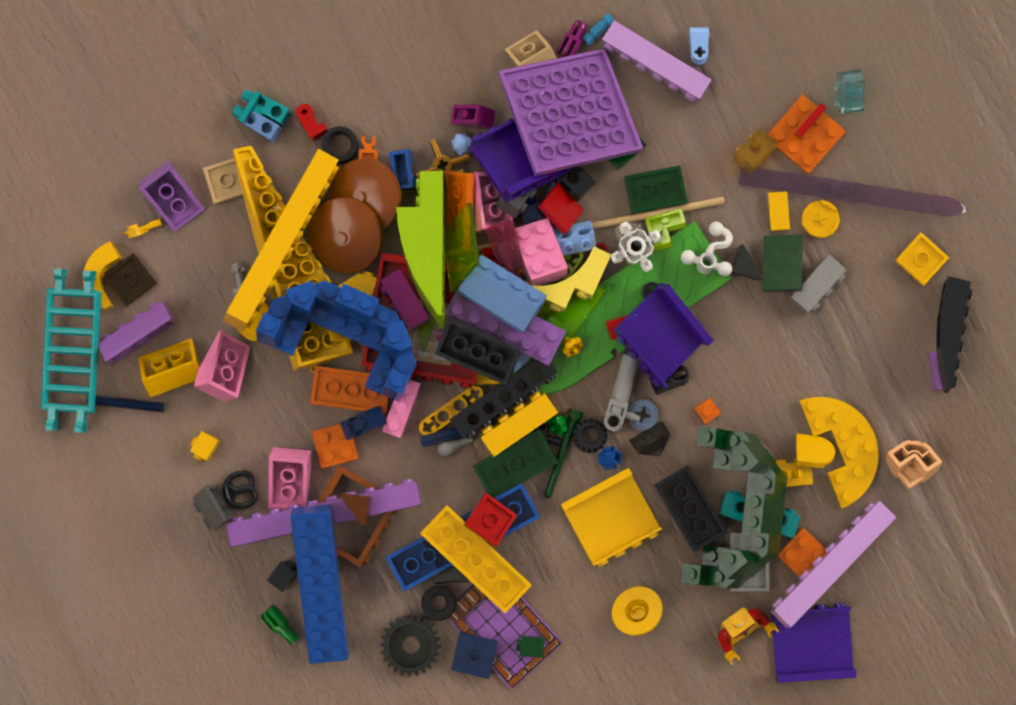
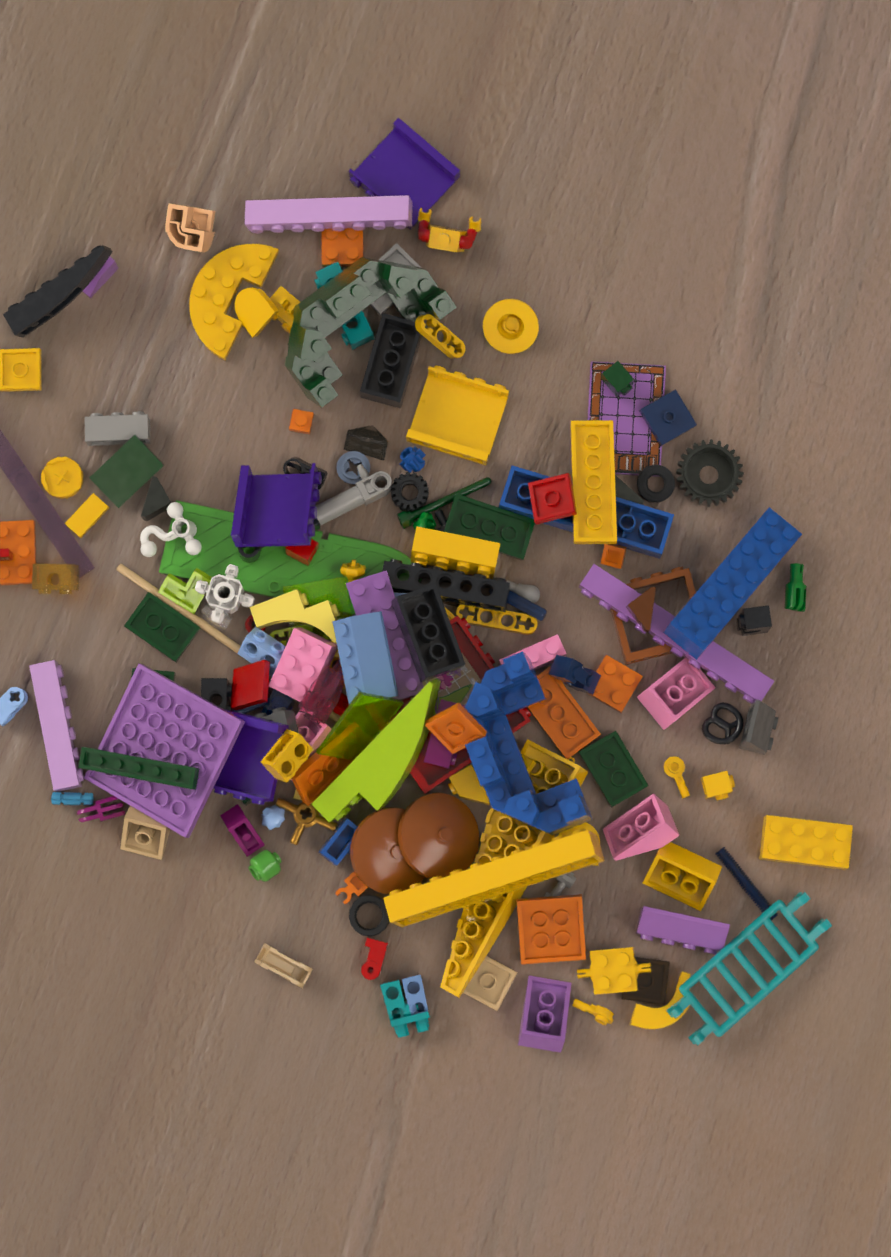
camera: 135 degrees left, 5 degrees down
(112, 466) = (806, 842): none -> yellow brick
(154, 264) = (614, 970): none -> yellow plate
(218, 250) = (551, 929): none -> orange plate
(242, 430) = (674, 768): none -> yellow plate
(280, 390) = (613, 769): none -> dark green plate
(370, 55) = (284, 966): none -> tan piece
(396, 304) = (455, 728): none -> orange plate
(415, 526) = (613, 555): none -> orange plate
(435, 109) = (265, 865): none -> bright green head
(486, 181) = (287, 755): none -> yellow brick
(573, 84) = (139, 768): none -> dark green plate
(669, 561) = (431, 335): none -> yellow beam

